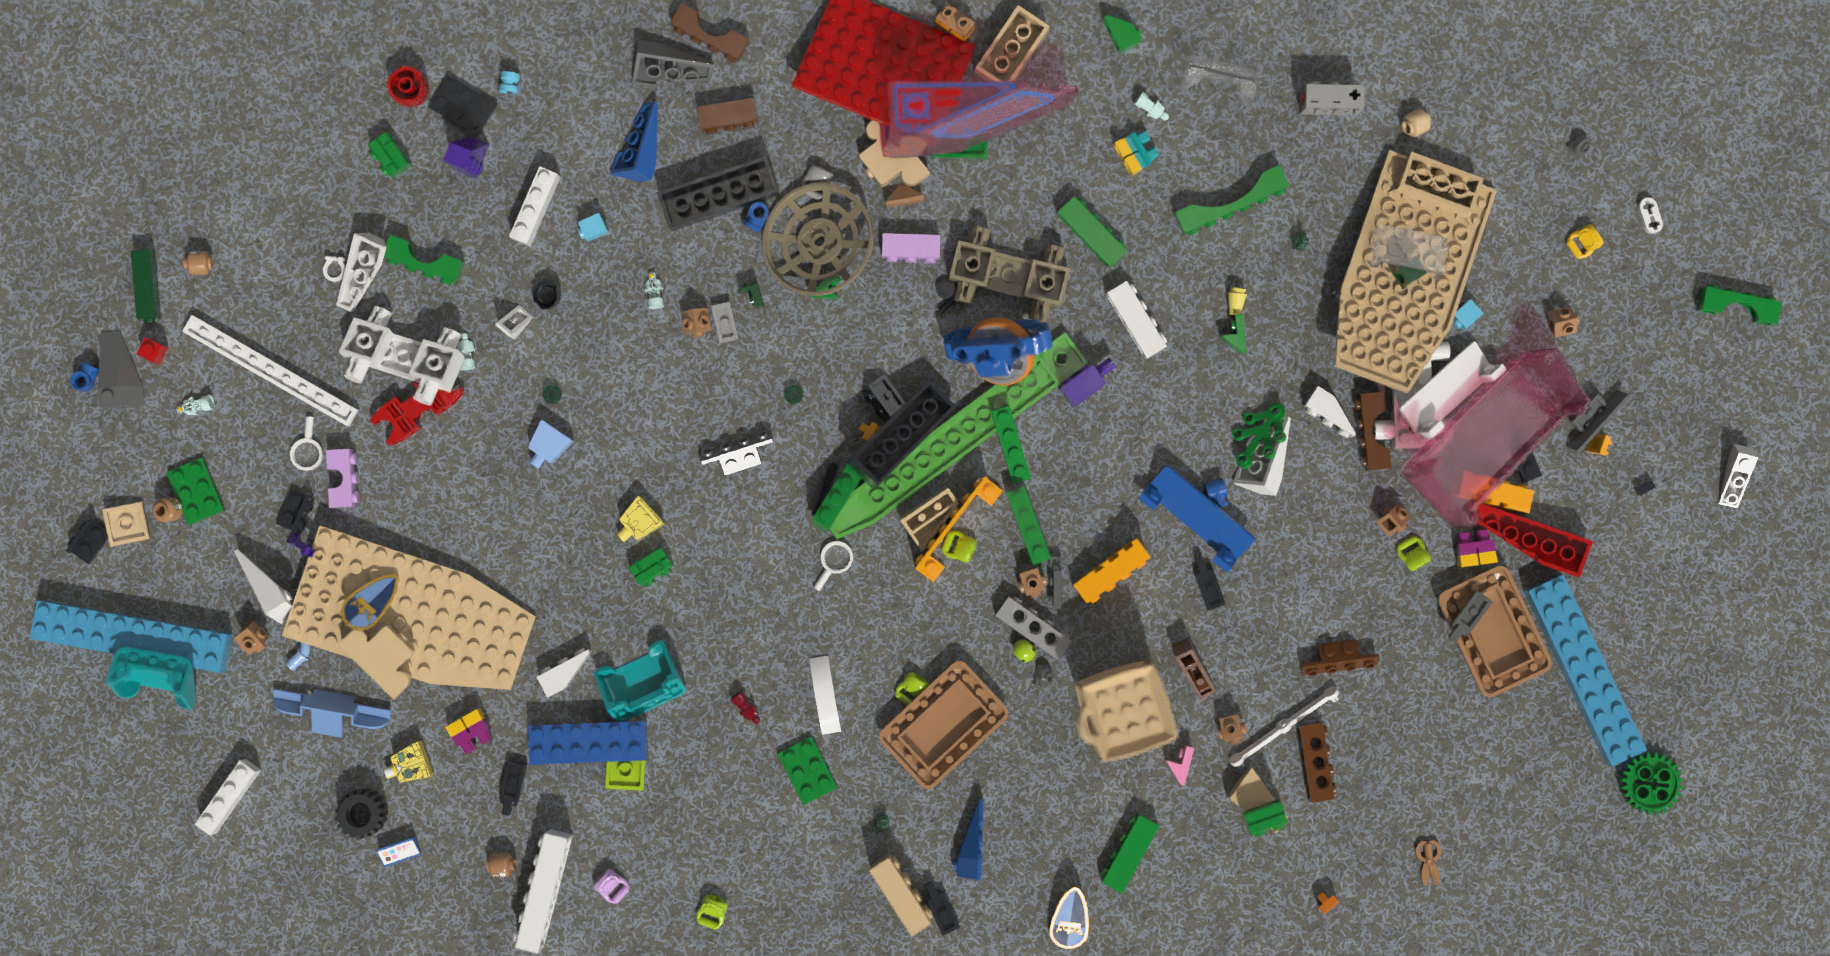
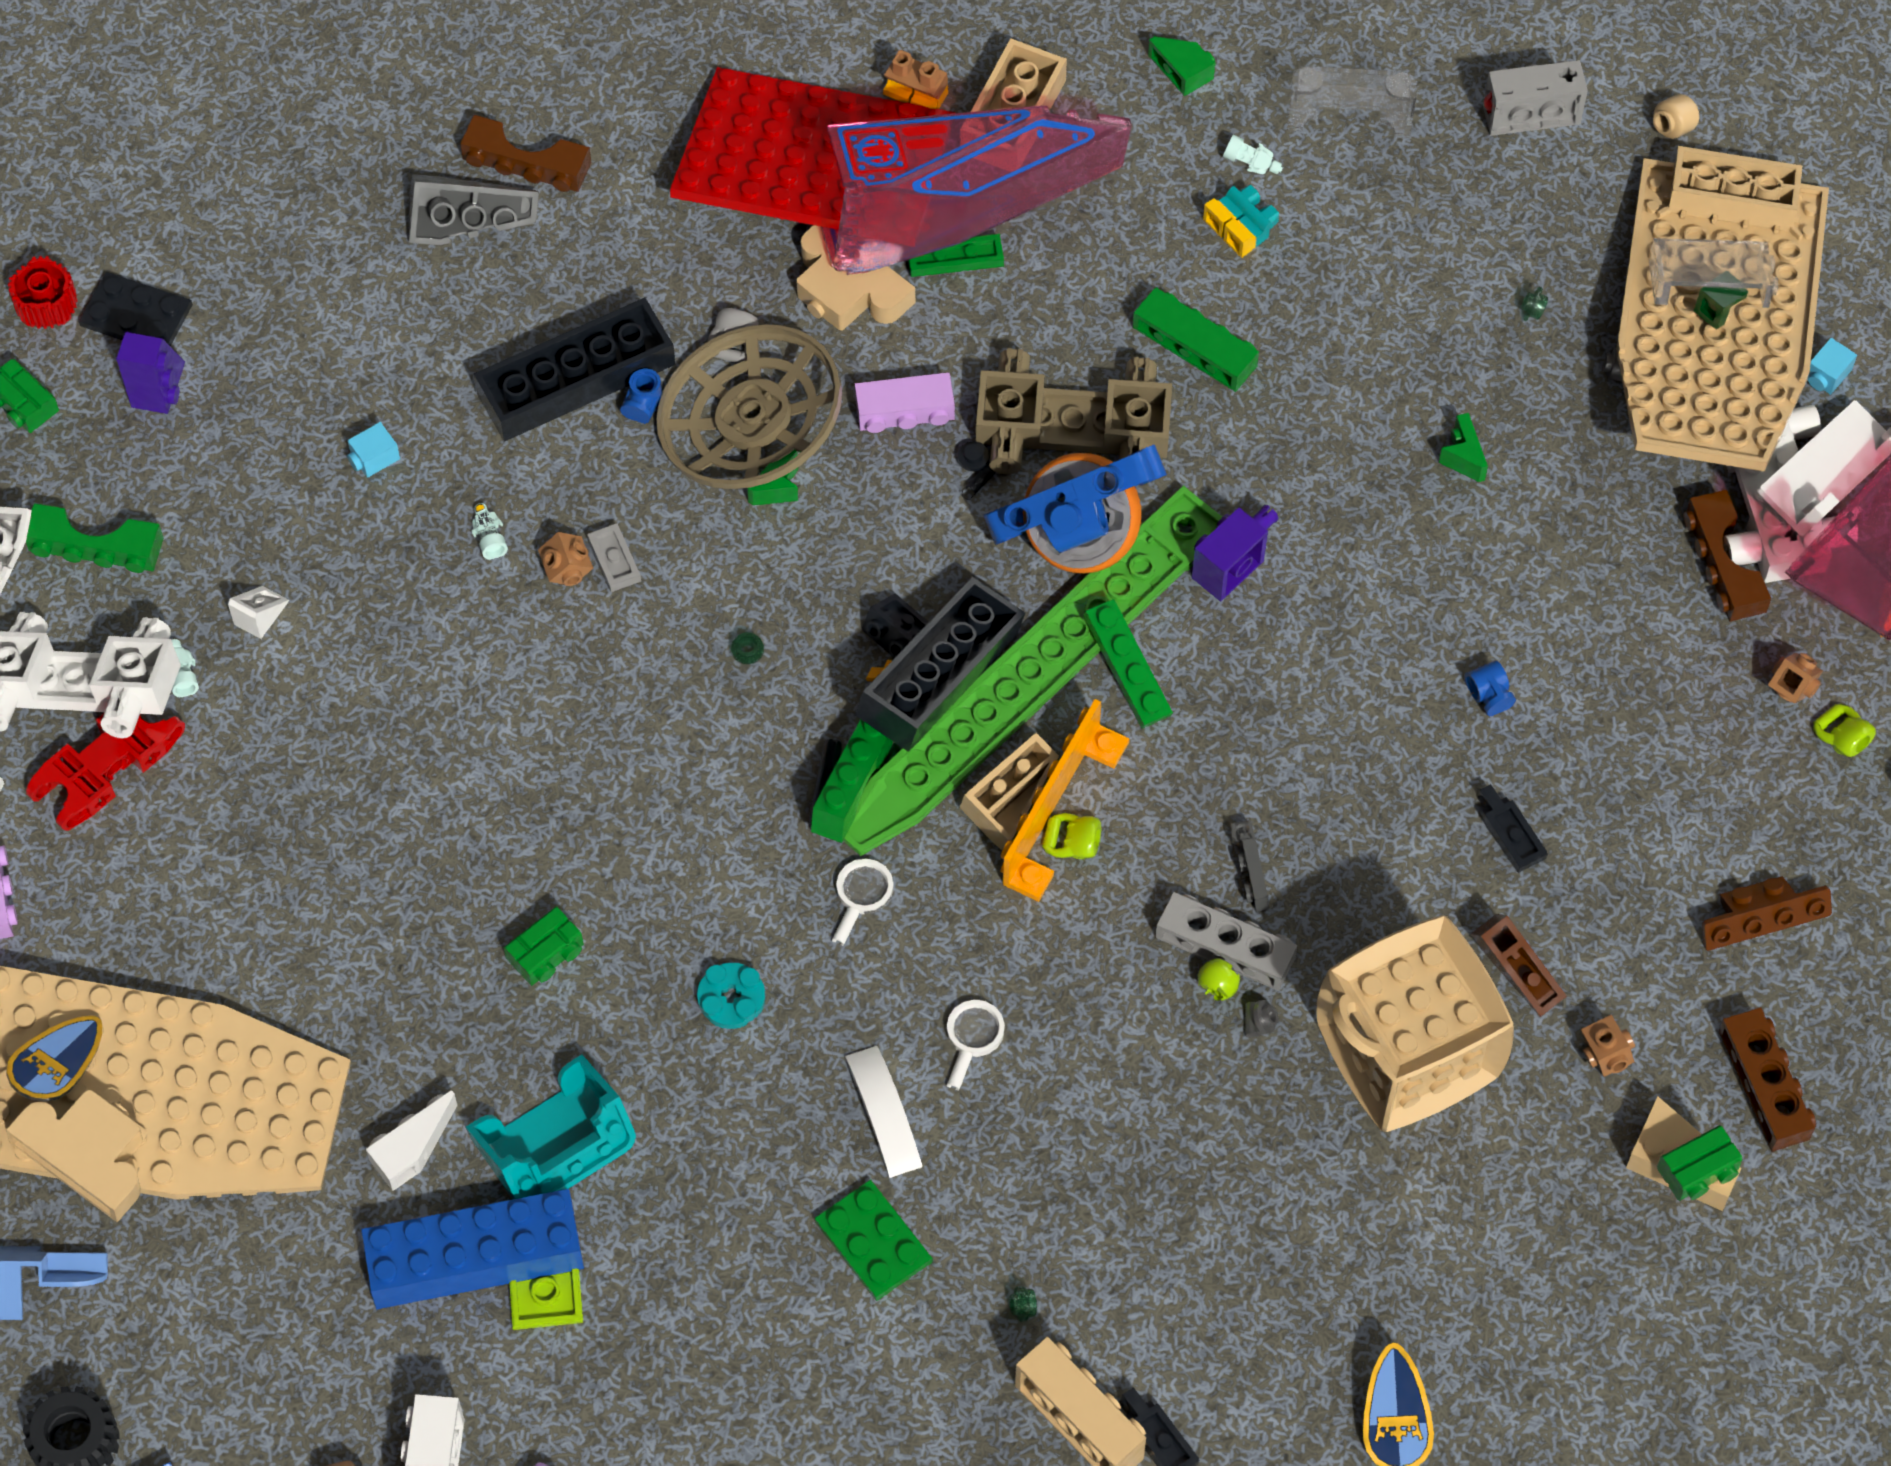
camera: 10 degrees left, 25 degrees down
(410, 764) = (151, 1338): light yellow torso -> none
(469, 727) = (247, 1276): magenta hips -> none
(509, 82) = (208, 266): medium azure wheel -> none
(512, 785) = (343, 1348): black hinge -> none
(534, 206) = (272, 433): white brick -> none
(547, 390) = (331, 701): clear green plate -> none
(548, 288) = (308, 551): black hair -> none
(548, 444) = (340, 781): light blue torso -> none
(639, 520) = (513, 876): light yellow torso -> none
(640, 153) = (437, 327): blue wedge -> none
(727, 116) = (572, 261): reddish brown brick -> none
(738, 454) = (669, 753): bracket -> none
(748, 711) = (751, 1156): dark red piece -> none
(755, 297) = (657, 507): dark green bracket -> none
(757, 621) = (719, 981): none -> teal plate
(883, 656) = (973, 1030): none -> piece
(904, 195) = (880, 336): medium nougat slope -> none
(913, 684) = (1038, 1067): lime piece -> none
(943, 724) = (1102, 1117): medium nougat wedge -> none
(970, 854) = (1195, 1331): blue wedge -> none
(1026, 577) = (1208, 867): medium nougat brick -> none
(1028, 525) = (1183, 782): green brick -> none
(1111, 570) = (1342, 827): light orange wedge -> none
(1130, 852) = (1477, 1282): green brick -> none
(1136, 320) = (1296, 452): white brick -> none
(1181, 769) = (1532, 1126): bright pink slope -> none
(1194, 216) = (1359, 293): green arch -> none
(1199, 515) = (1469, 720): blue bracket -> none
(1236, 300) = (1452, 398): light yellow cone -> none
(1261, 433) = (1556, 552): green plant -> none
(1265, 473) = (1563, 629): white wedge -> none
(1284, 726) = (1696, 1032): white piece -> none
(1325, 404) = (1637, 523): white slope -> none
(1327, 903) = (1849, 1310): orange tile -> none

